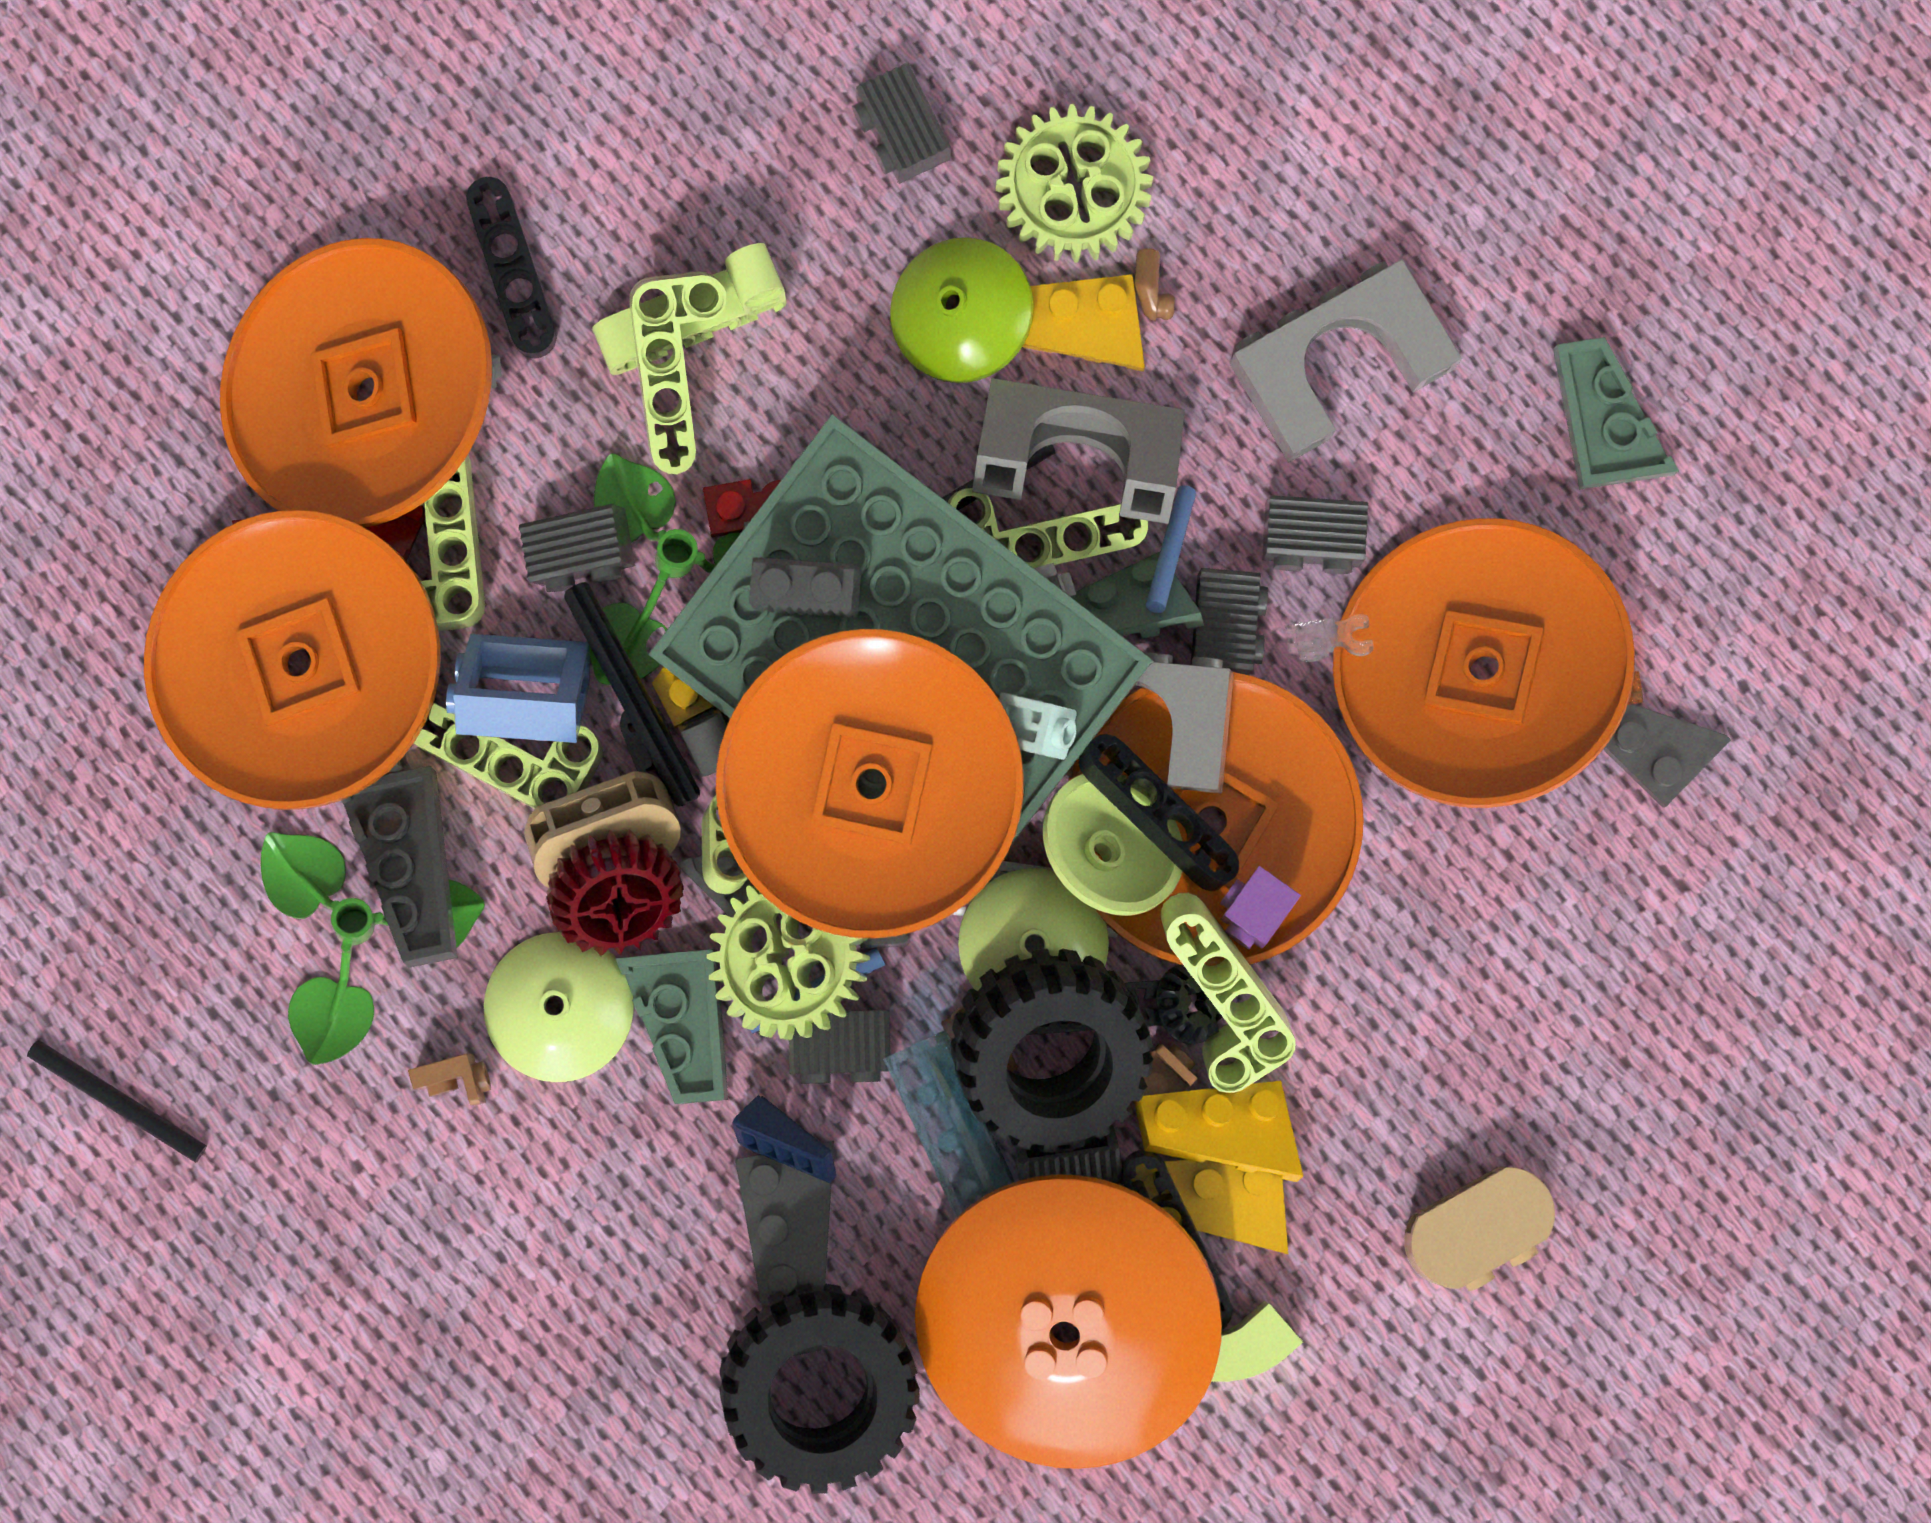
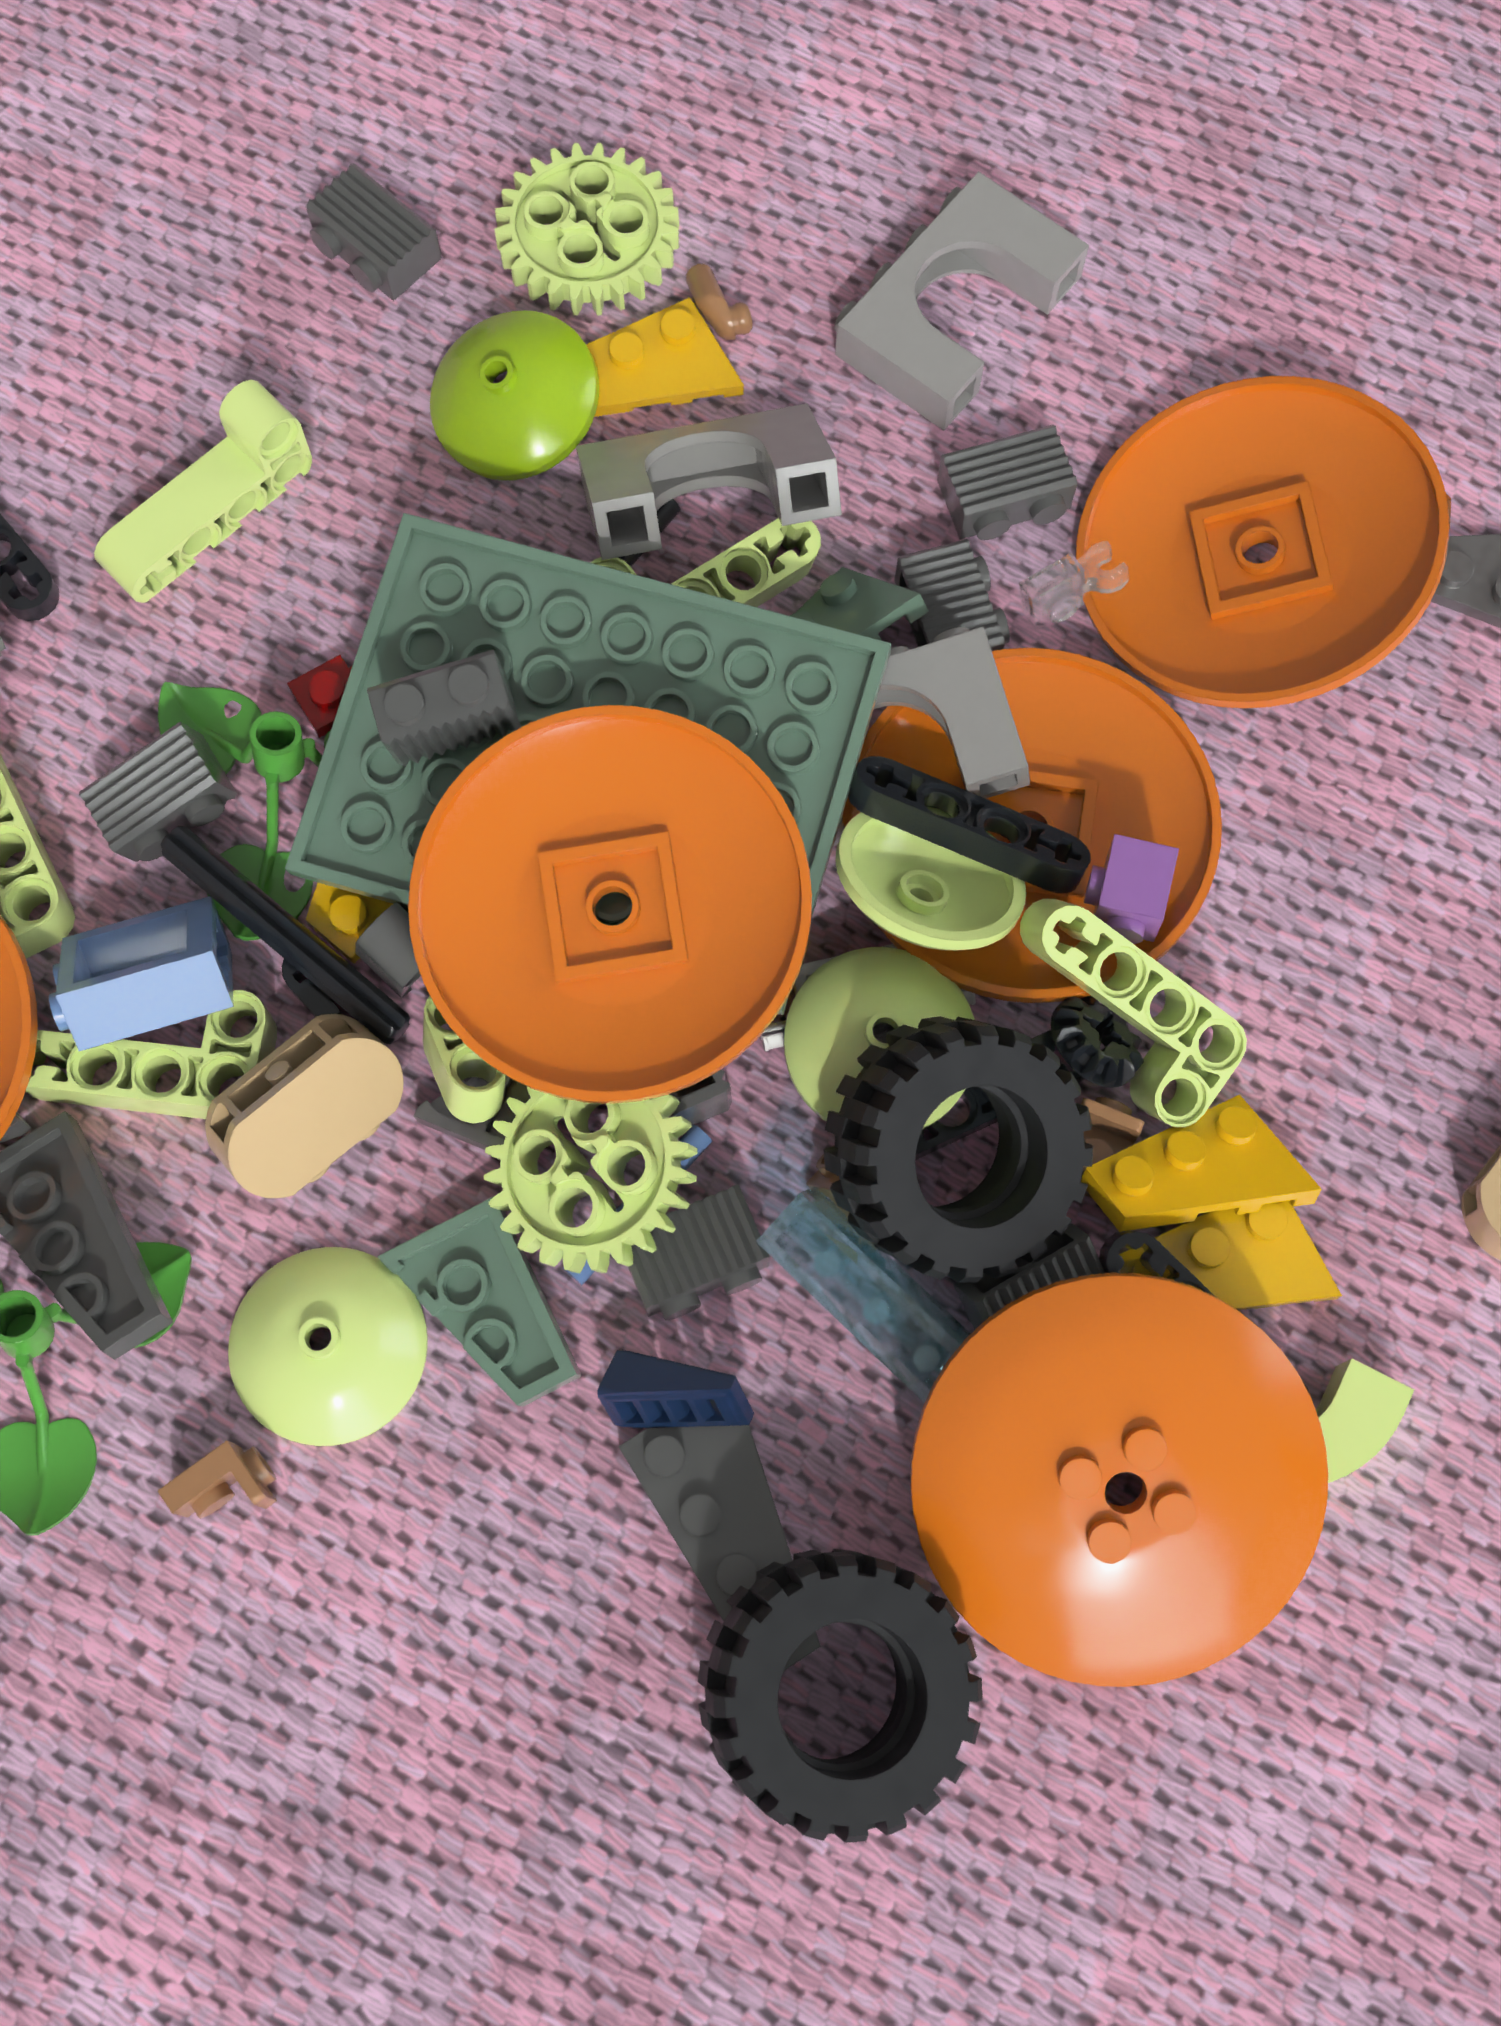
camera: 15 degrees left, 10 degrees down
(614, 892) = (310, 1162): dark red gear -> none
(673, 371) = (203, 561): yellowish green beam -> none
(1041, 725) = (793, 758): light aqua bracket -> none
(1170, 549) = (856, 555): medium blue bar -> none
(1604, 421) = (1264, 266): sand green wing -> none

